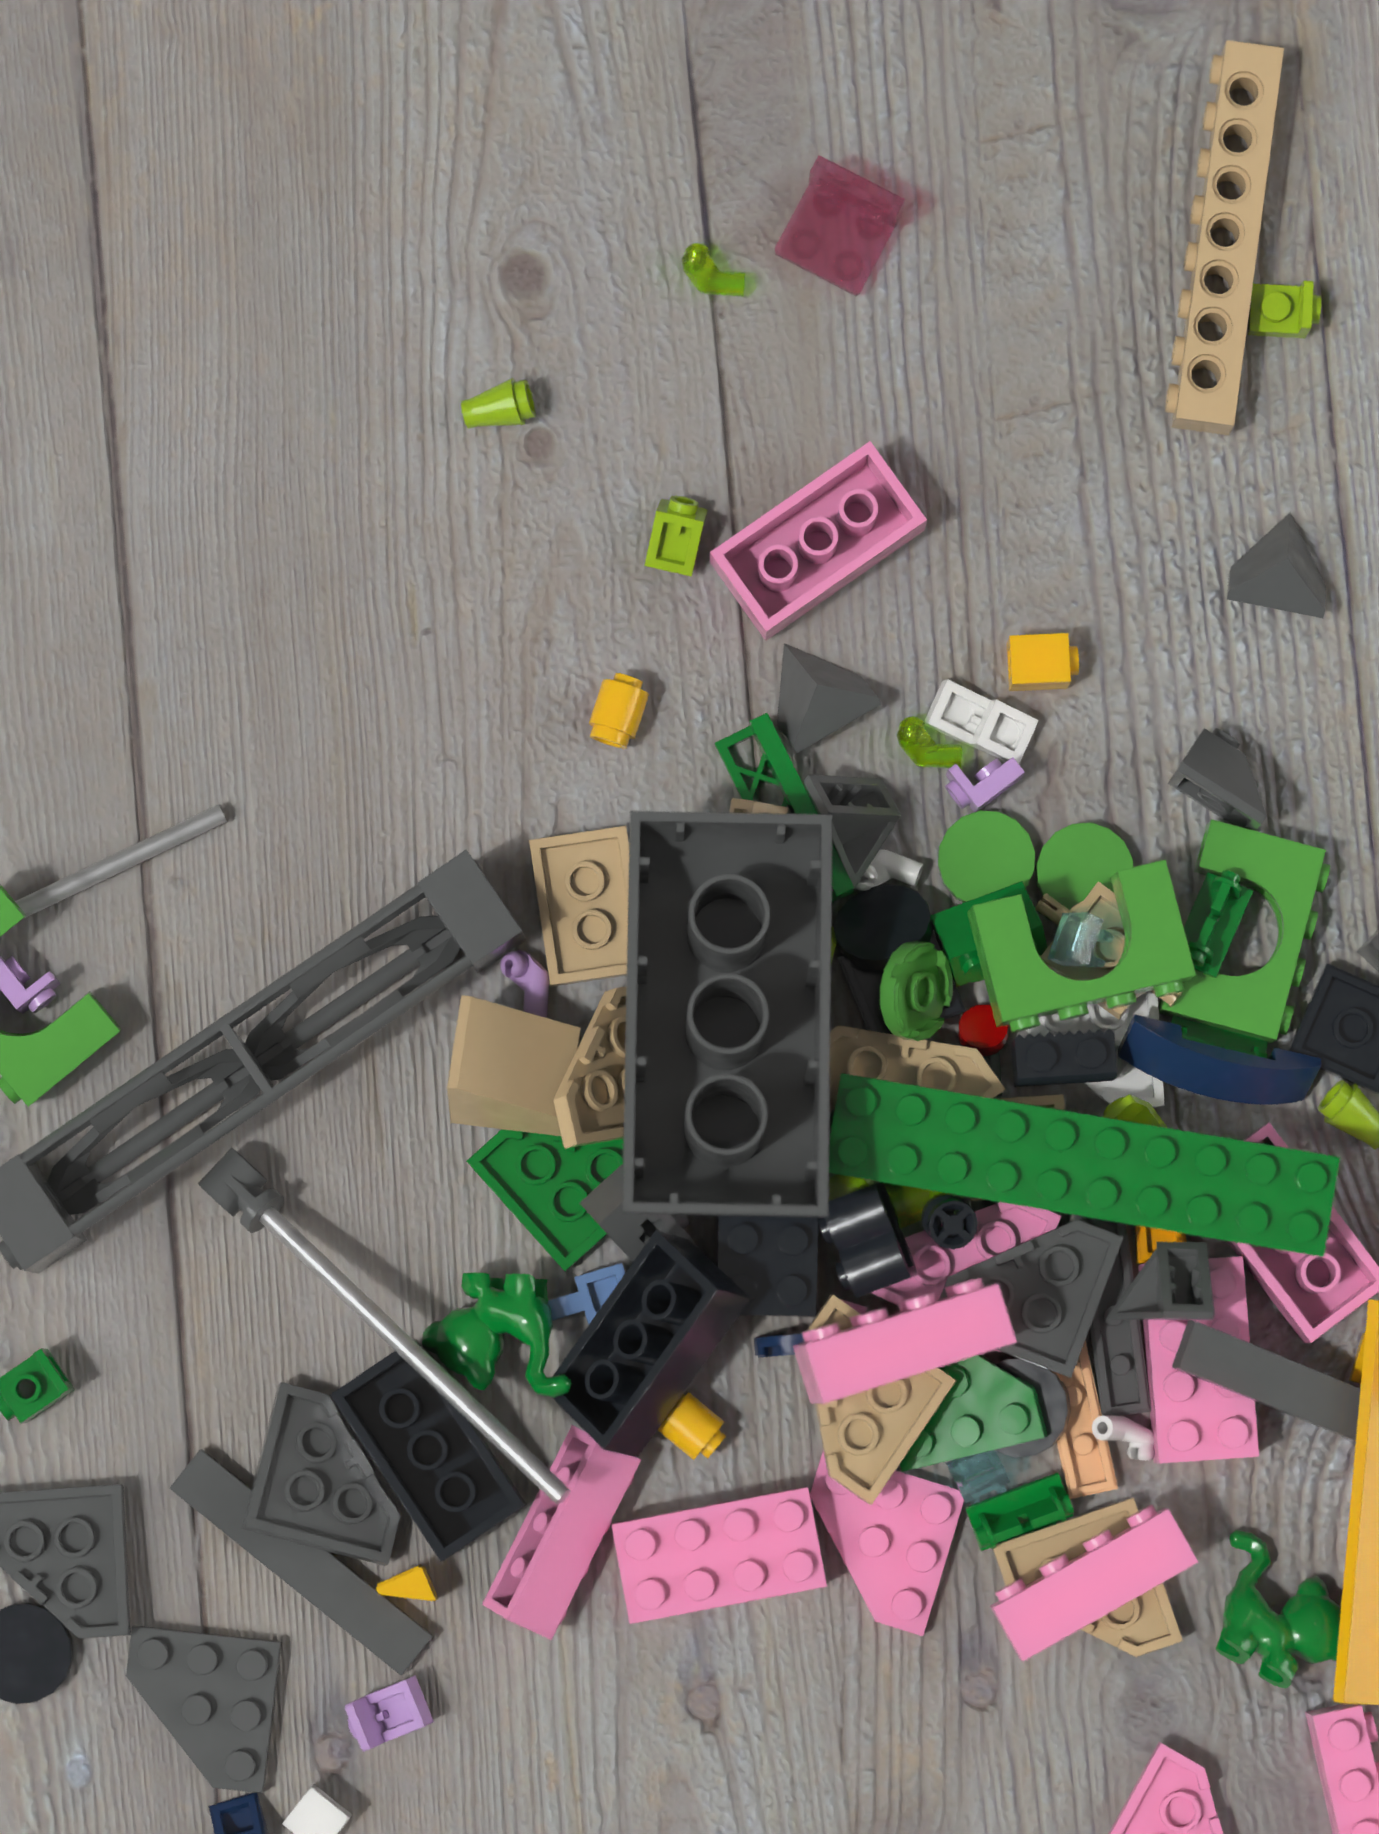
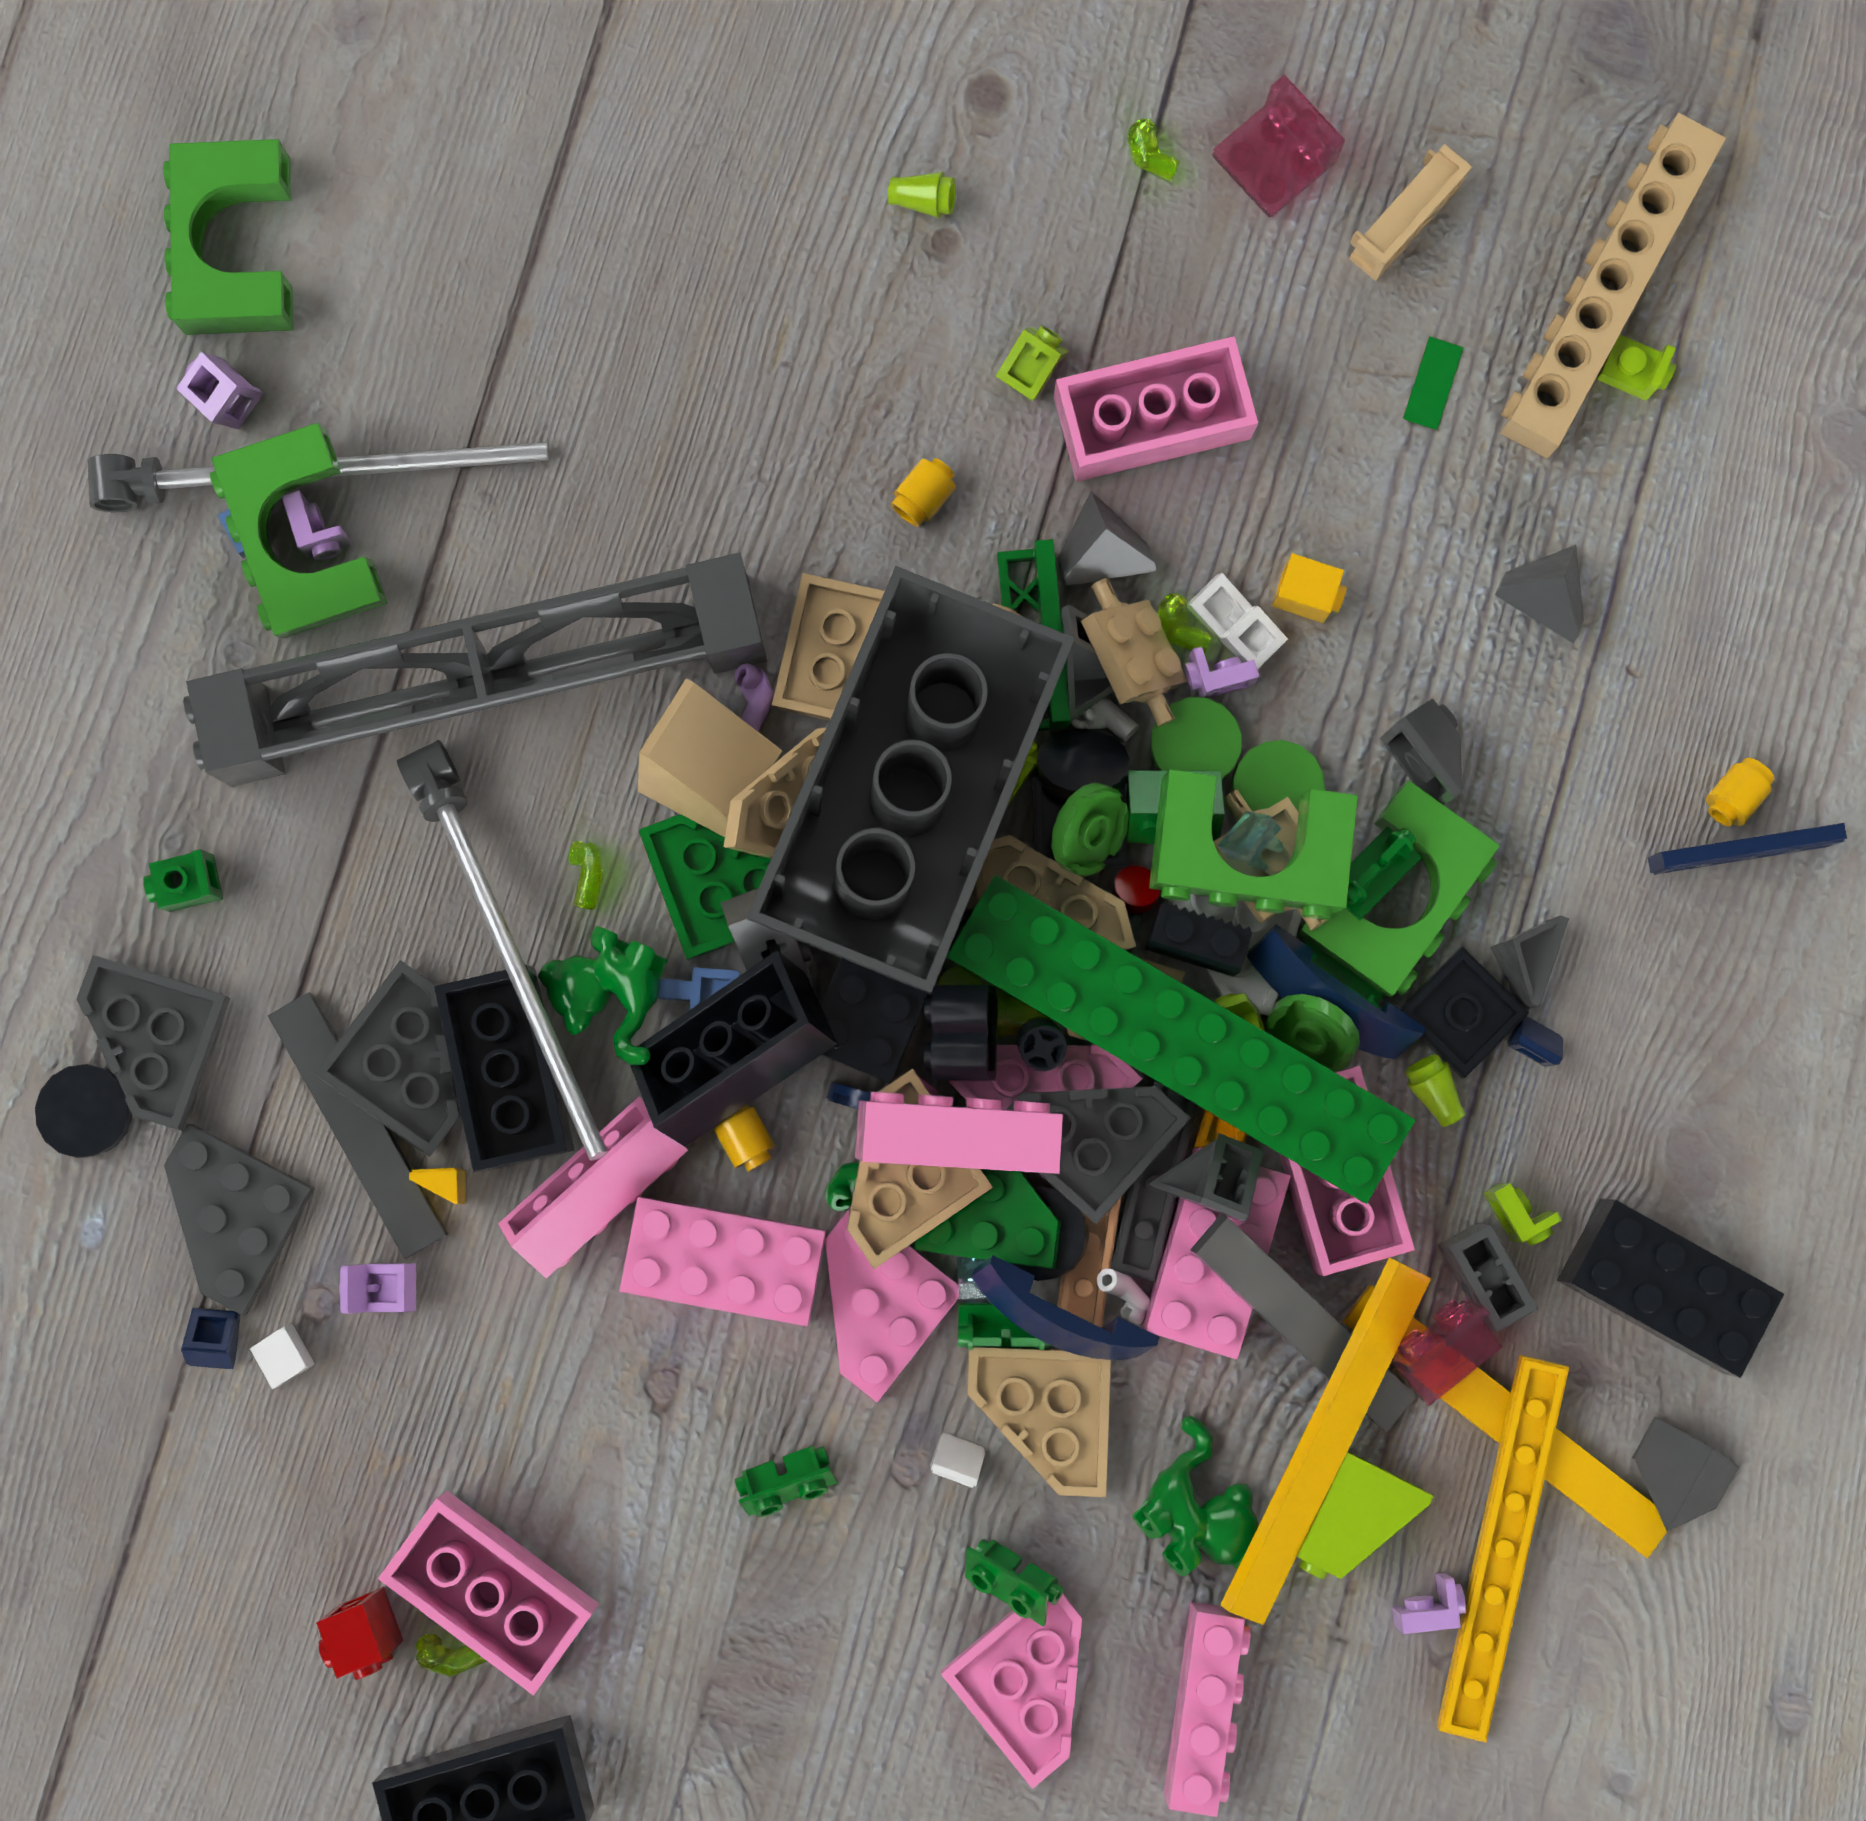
camera: 15 degrees right, 0 degrees up
(435, 1223) = (591, 873): none -> clear neon green arm
(806, 1437) = (841, 1187): none -> green arm
(879, 1740) = (803, 1479): none -> green hinge
(891, 793) = (1134, 651): none -> tan plate
(996, 239) = (1409, 212): none -> tan container
(1012, 1476) = (1010, 1293): none -> dark blue slope
(1014, 1670) = (958, 1460): none -> white slope
(1085, 402) = (1433, 383): none -> green sticker
(1093, 1583) = (1046, 1415): bright pink brick -> none
(1100, 1756) = (993, 1570): none -> green hinge
(1212, 1105) = (1315, 1029): none -> bright green tile

